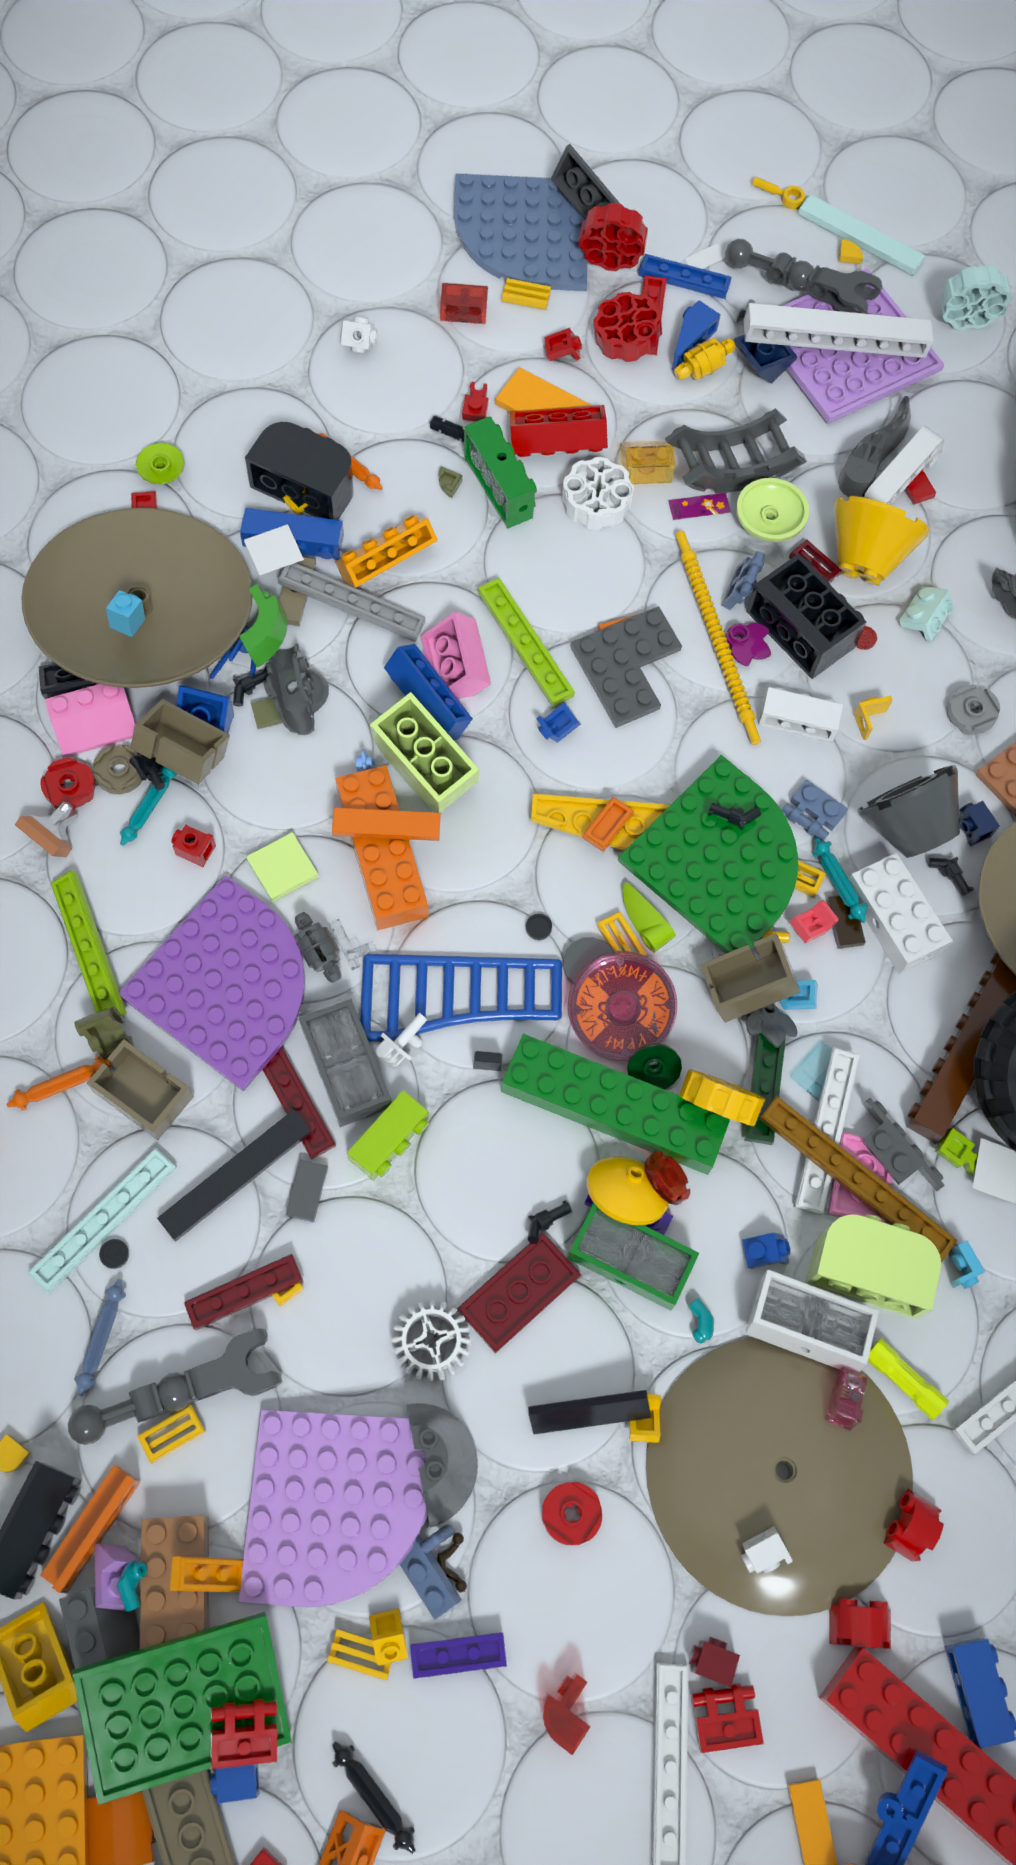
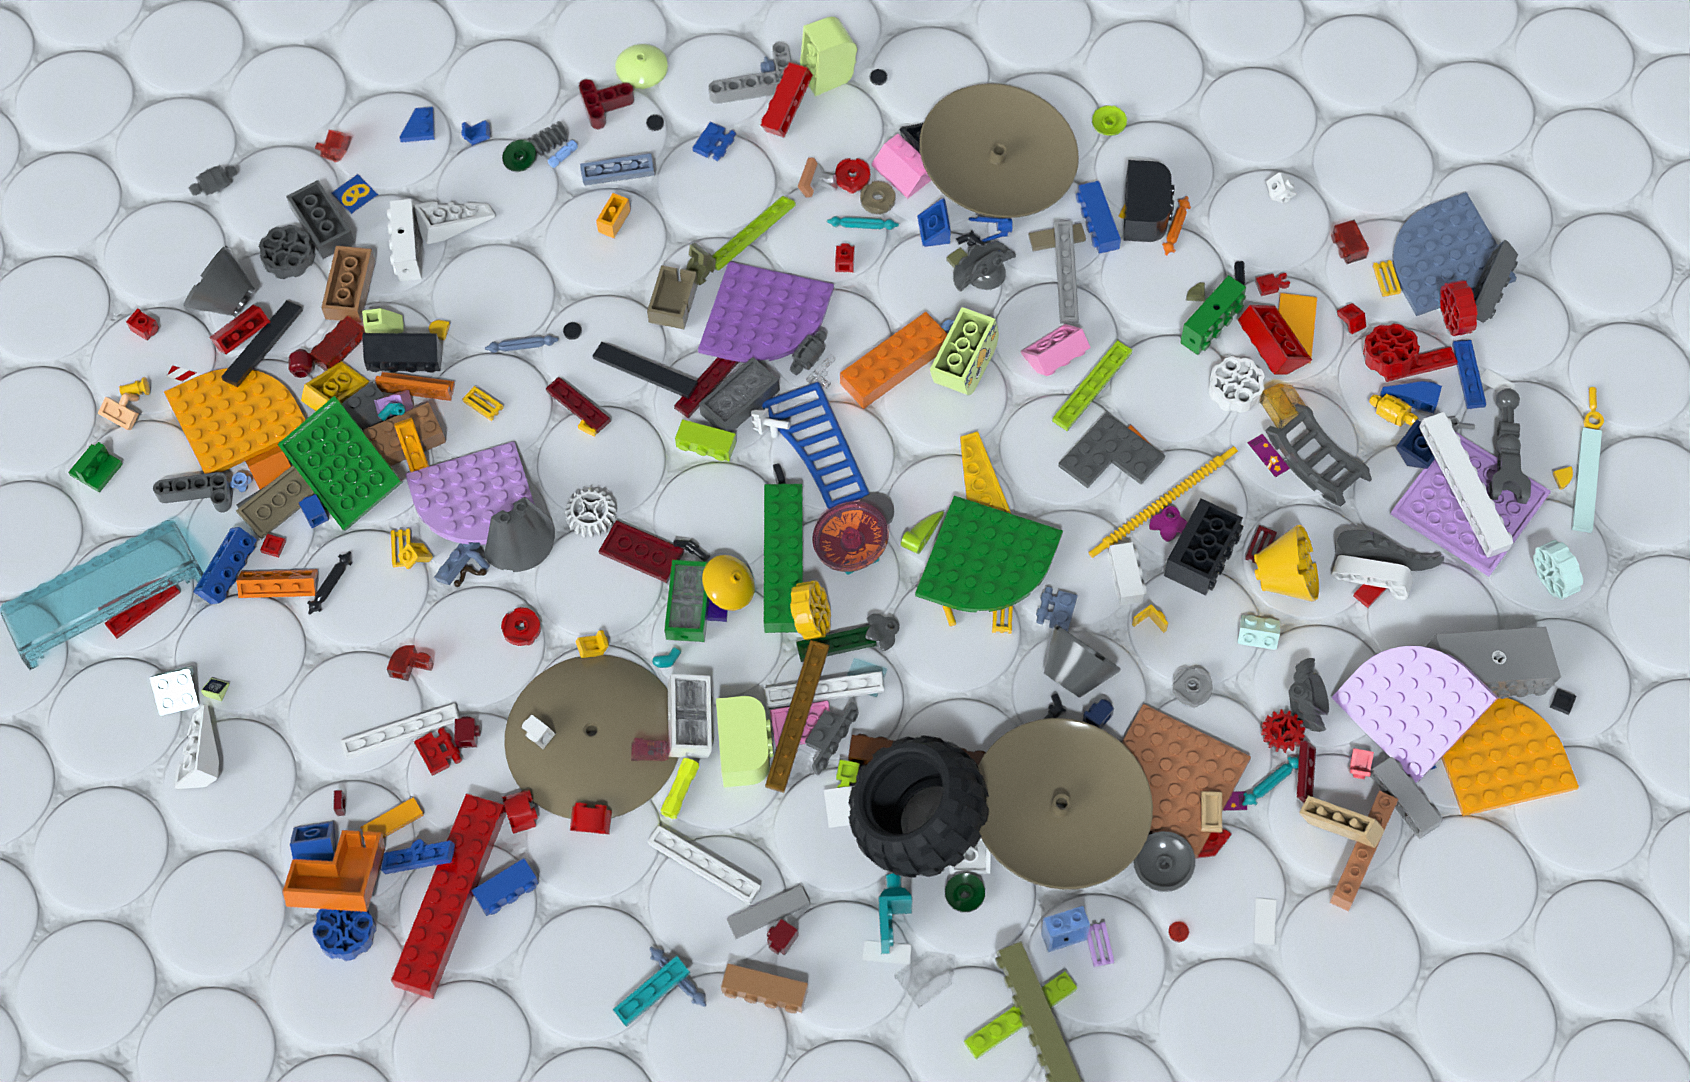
camera: 75 degrees right, 5 degrees down
(56, 1084) = (654, 253): orange wheel -> none
(102, 1220) = (589, 316): light aqua tile -> none
(125, 613) = (976, 146): medium azure brick -> none
(144, 500) = (1077, 126): red tile -> none
(148, 769) = (884, 210): black piece -> none
(178, 1390) = (506, 393): dark grey piece -> none
(180, 741) = (907, 217): dark tan piece -> none
(243, 1744) = (331, 501): red plate -> none
(269, 629) = (1015, 230): bright green arch -> none
(273, 549) = (1074, 209): white sticker -> none
(282, 867) = (855, 313): yellowish green tile -> none
(307, 1191) = (653, 412): dark grey tile -> none
(386, 551) = (1113, 275): light orange brick -> none
(386, 824) = (904, 350): orange tile -> none
(416, 675) = (1018, 341): blue brick -> none
(458, 1655) = (419, 596): dark purple plate -> none
(538, 926) = (887, 473): black piece -> none
(558, 723) = (1038, 427): blue bracket -> none
(589, 1412) = (582, 611): black tile -> none
(608, 824) = (976, 482): orange tile -> none
(627, 930) = (892, 536): yellow tile -> none
(661, 1074) = (818, 568): dark green dish -> none
(667, 1178) = (746, 602): clear red tile -> none
(735, 816) = (1015, 550): black piece -> none
(743, 580) = (1221, 499): sand blue plate -> none
(748, 982) = (905, 601): dark tan piece -> none
(766, 1250) = (728, 681): blue bracket -> none
(772, 500) = (1286, 488): yellowish green dish -> none
(805, 999) = (911, 638): medium azure bracket -> none
(814, 922) = (968, 633): coral bracket -> none
(840, 880) = (1008, 639): teal wheel -> none
(847, 931) = (982, 655): dark brown tile -> none
(867, 639) = (1216, 598): clear red piece -> none
(899, 914) = (1001, 683): white brick -> none
(967, 1262) = (772, 801): medium azure bracket -> none

